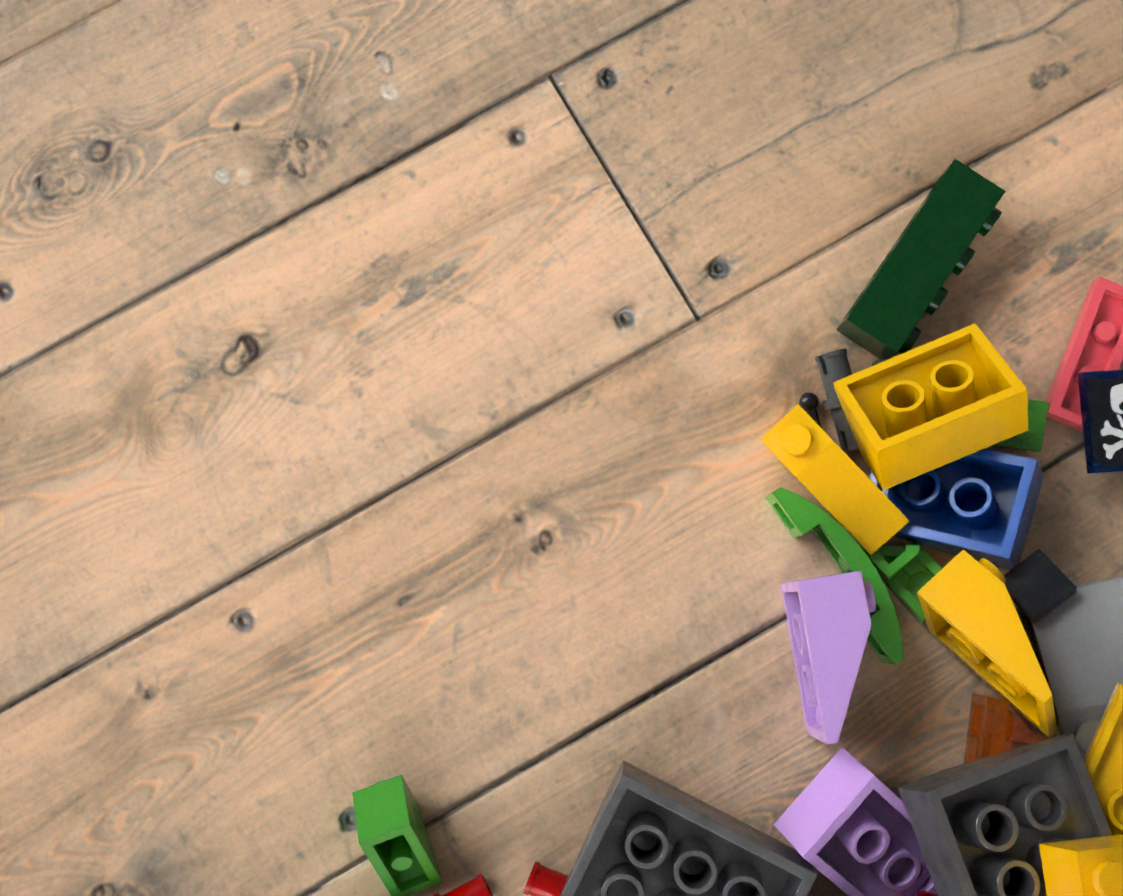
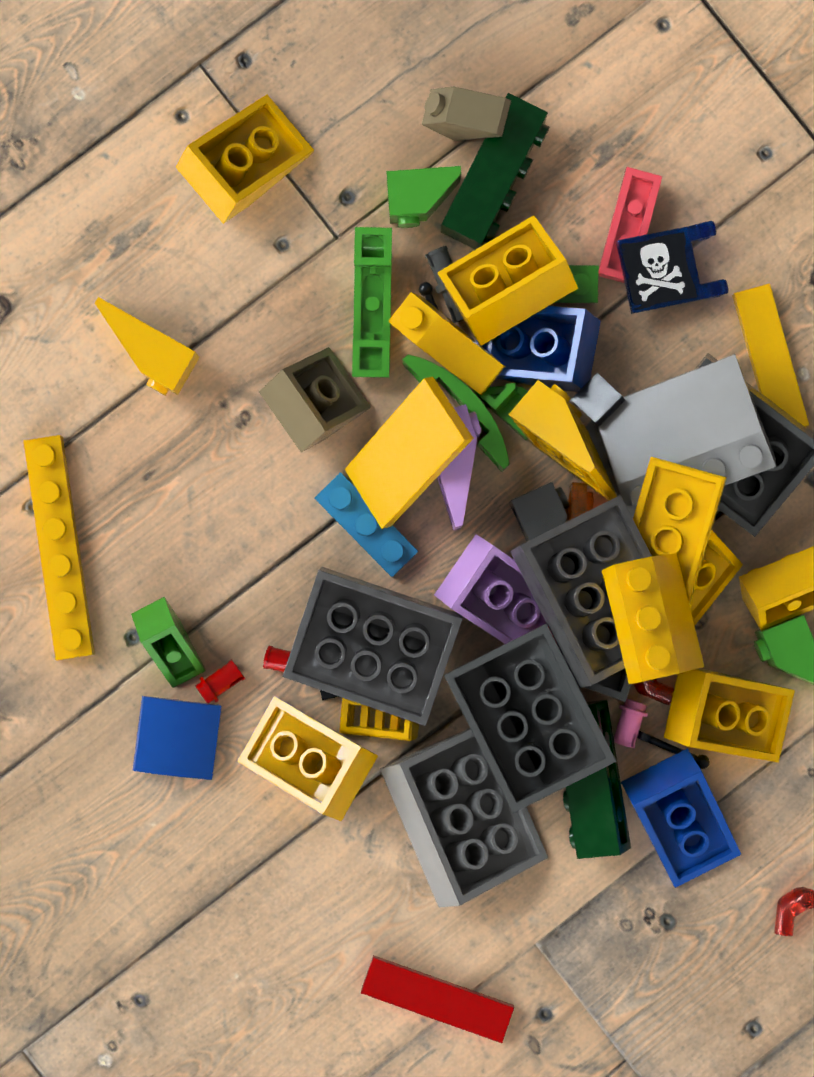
camera: 15 degrees left, 5 degrees up
(269, 685) = (59, 547): none -> yellow plate
(435, 436) = (154, 353): none -> yellow slope
(589, 199) = (243, 158): none -> yellow slope
(642, 529) = (314, 398): none -> dark tan slope
(691, 711) = (348, 508): none -> dark azure plate
(737, 410) = (372, 302): none -> bright green slope
(773, 625) = (408, 452): none -> yellow tile
(815, 273) = (418, 193): none -> bright green slope
(896, 178) = (465, 113): none -> dark tan slope
(934, 731) = (540, 510): none -> dark grey slope

